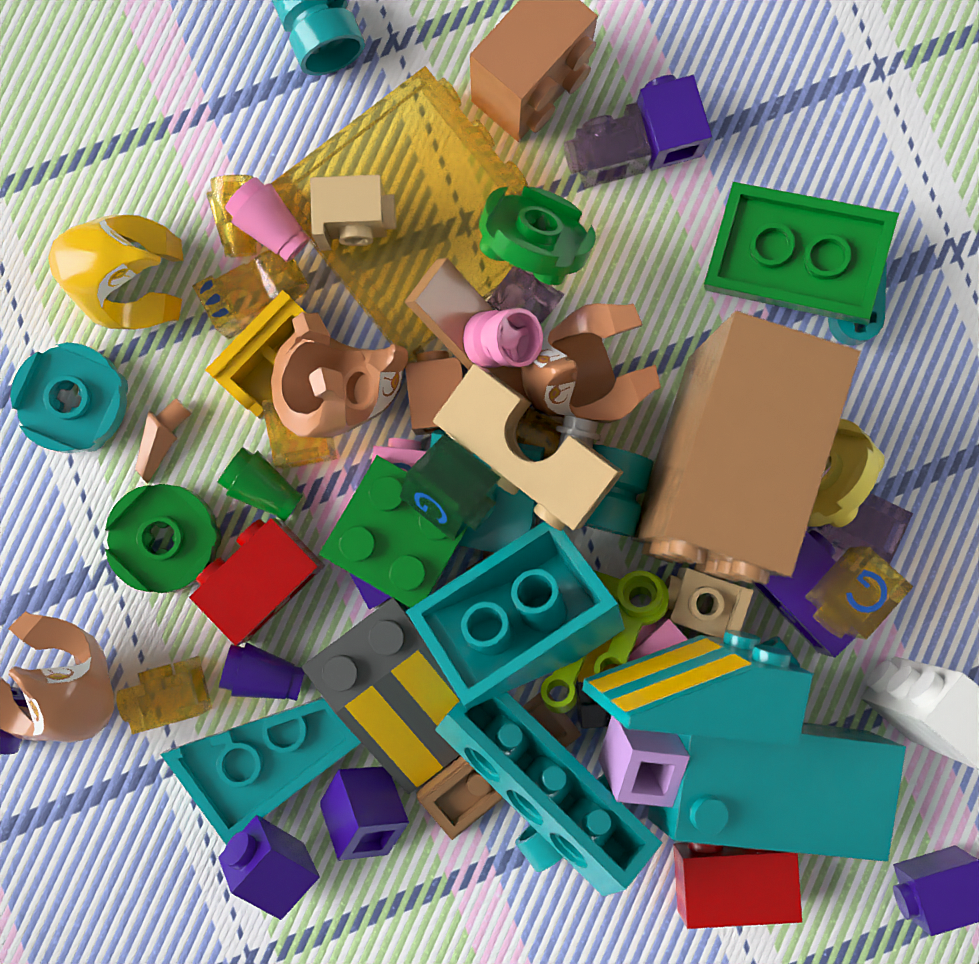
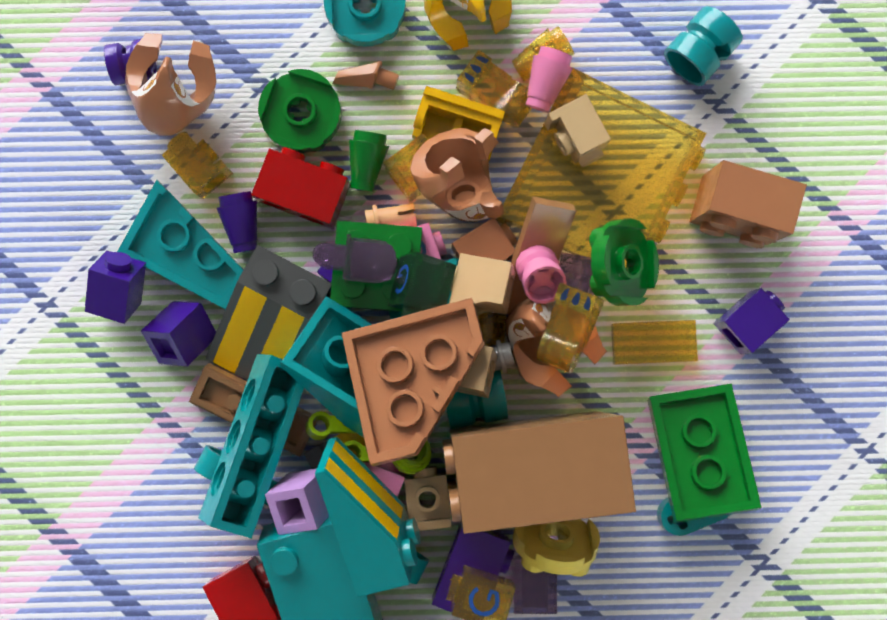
camera: 60 degrees right, 0 degrees up
(343, 486) = (395, 215): none -> light nougat pin
(381, 548) = (359, 259): none -> clear purple arm
(554, 552) = (409, 373): none -> nougat plate
(586, 333) = (569, 328): none -> clear yellow leg
(609, 148) = (712, 286): clear purple brick -> none
(641, 249) = (654, 342): none -> clear yellow tile

